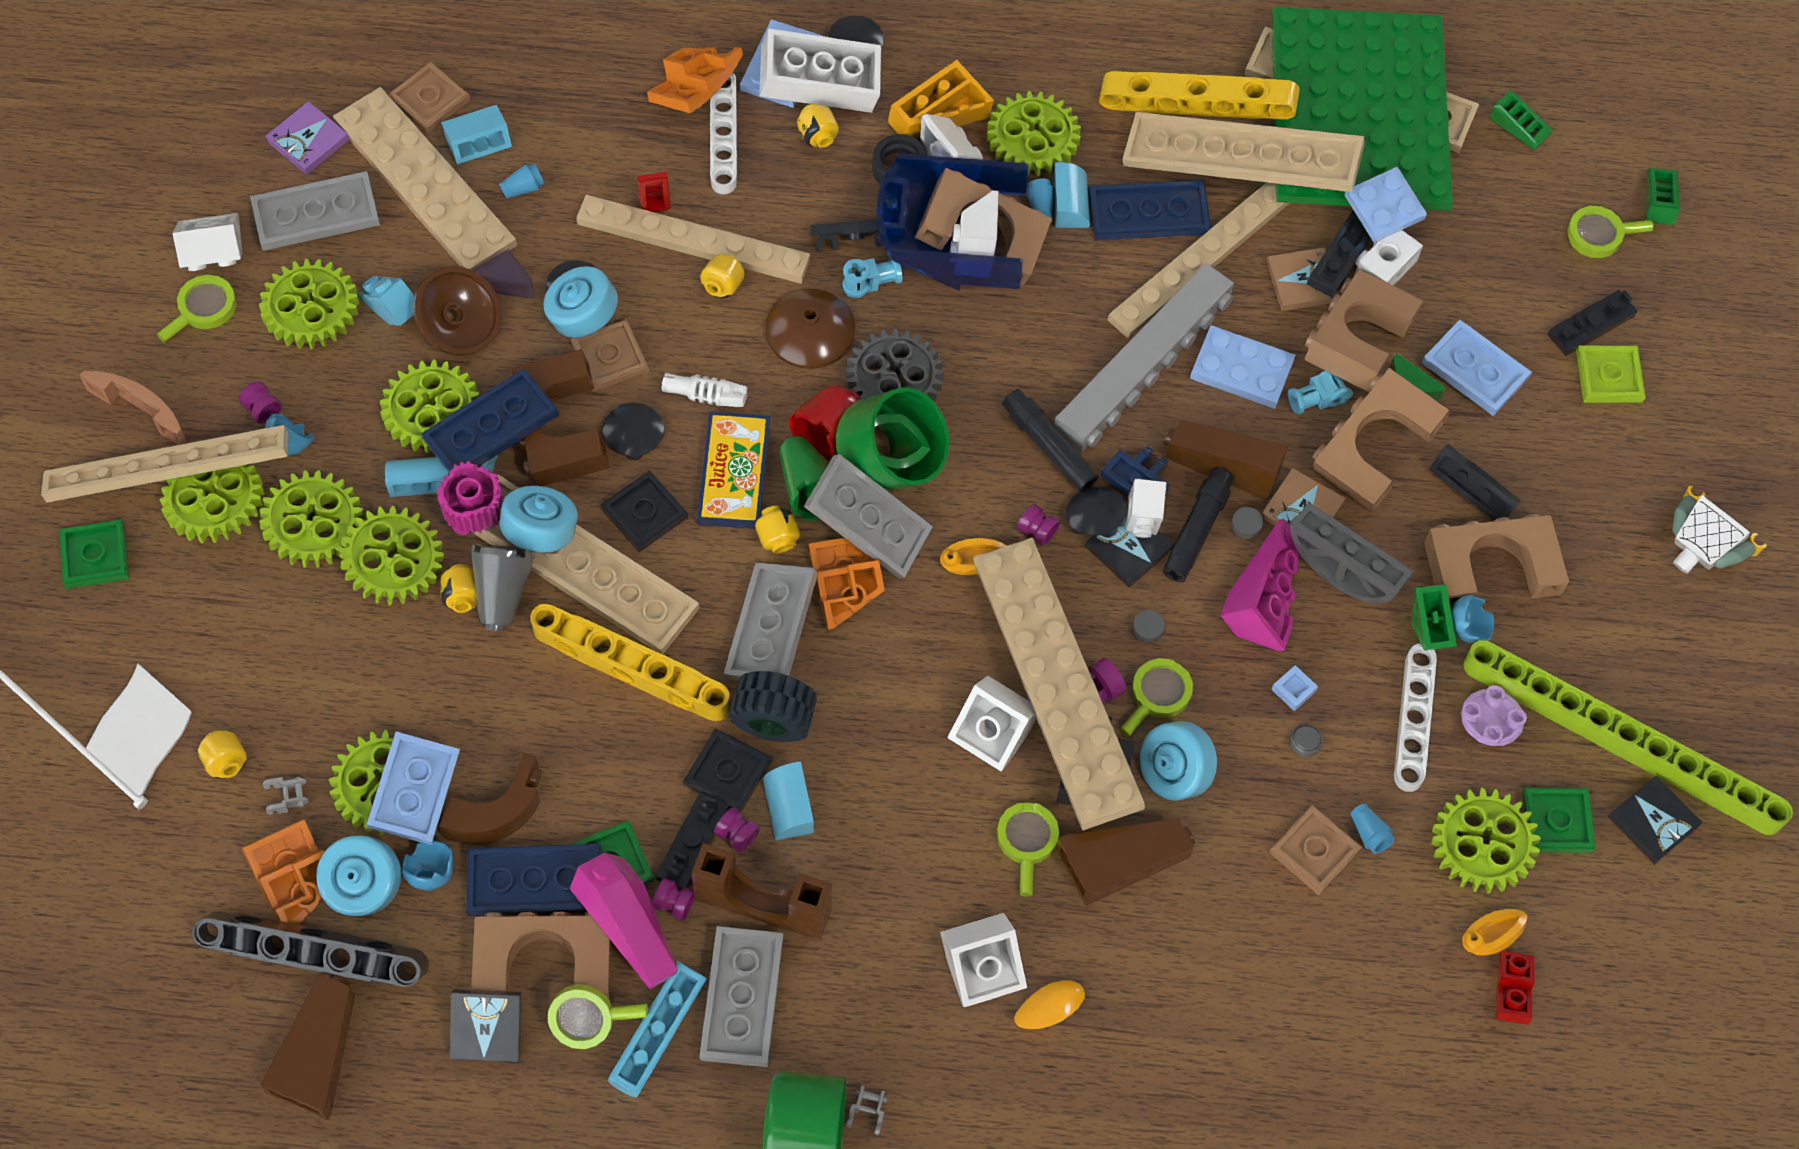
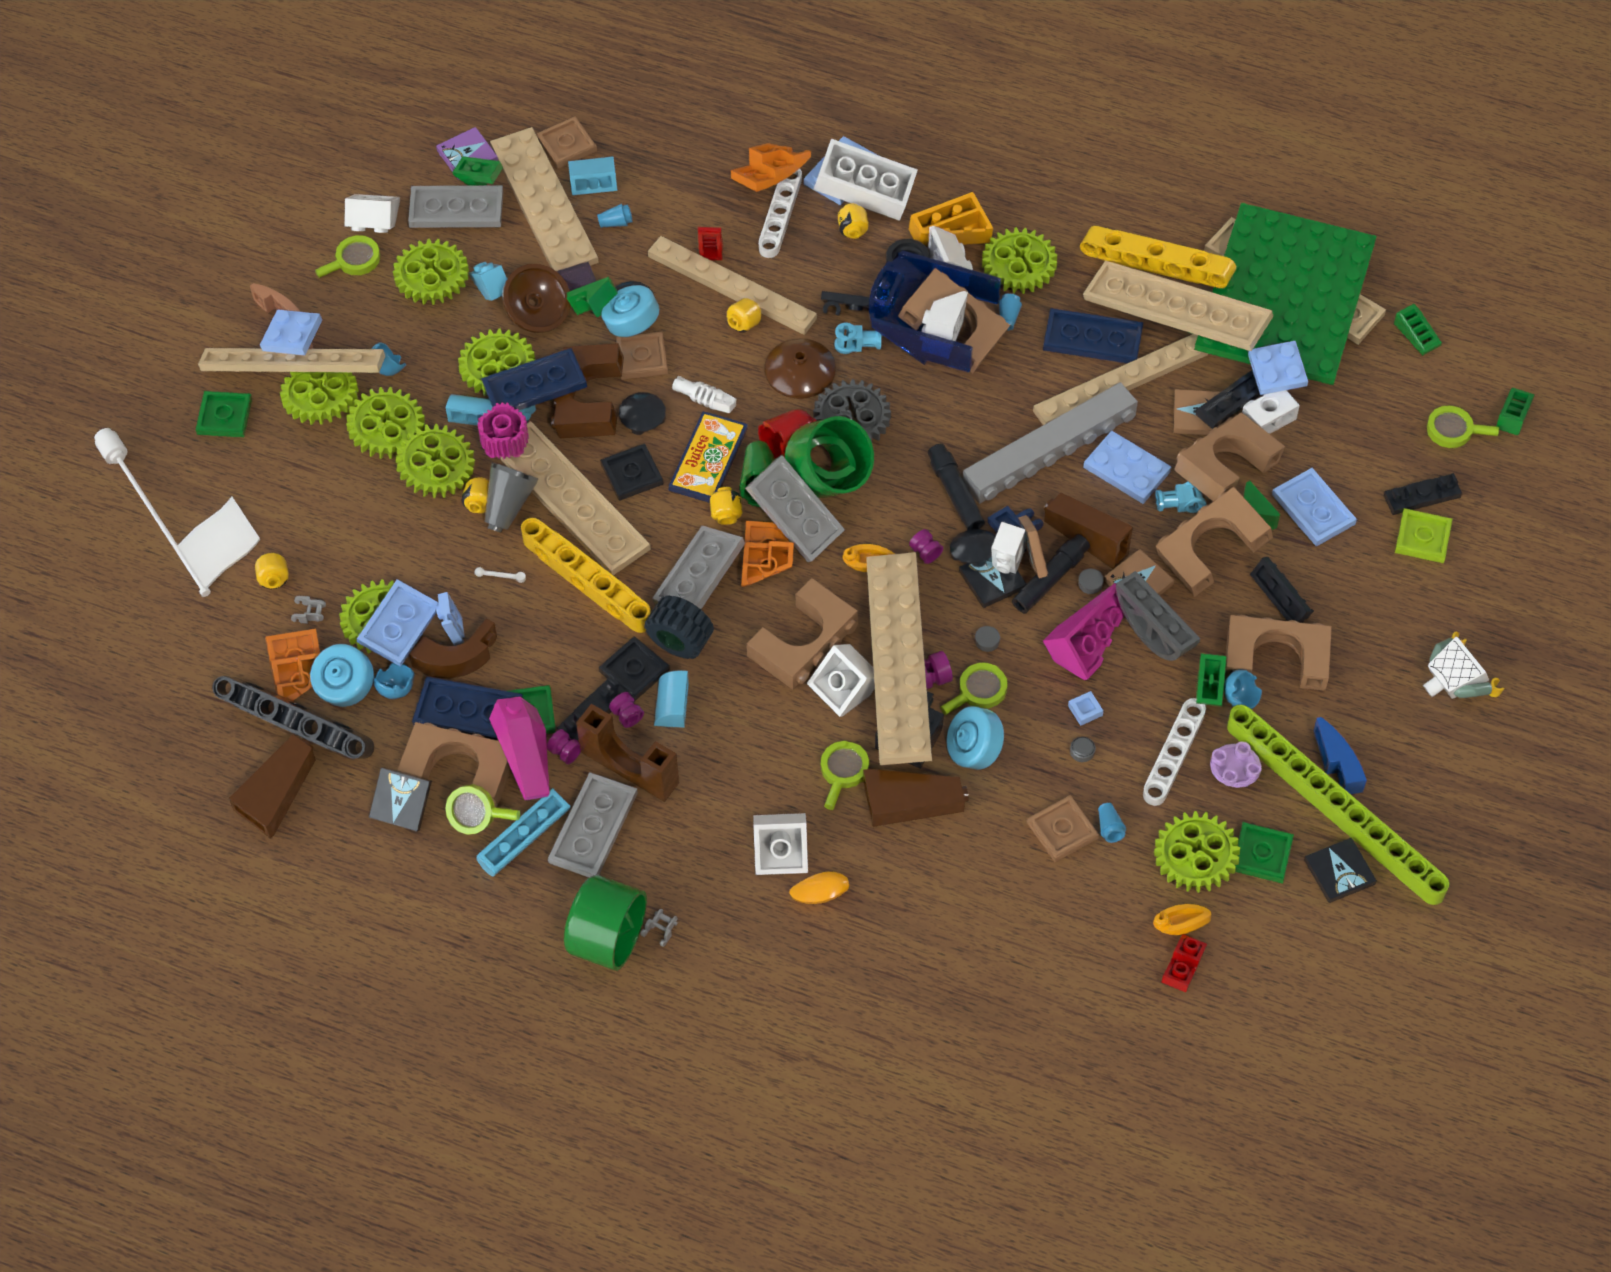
camera: 20 degrees right, 5 degrees down
(154, 427) = (291, 332): none -> light blue plate
(259, 401) = (373, 332): magenta wheel -> none
(330, 159) = (477, 171): none -> green slope
(479, 766) = (451, 618): none -> light blue plate
(527, 293) = (592, 296): none -> green slope
(538, 519) = (547, 456): medium azure wheel -> none
(545, 684) = (520, 576): none -> white hinge
(857, 29) = (908, 156): black dish -> none
(925, 716) = (794, 663): none -> medium nougat arch
(1070, 196) = (1033, 313): medium azure brick -> none
(1177, 501) = (1033, 547): none -> medium nougat tile
(1609, 677) = (1339, 757): none -> blue slope

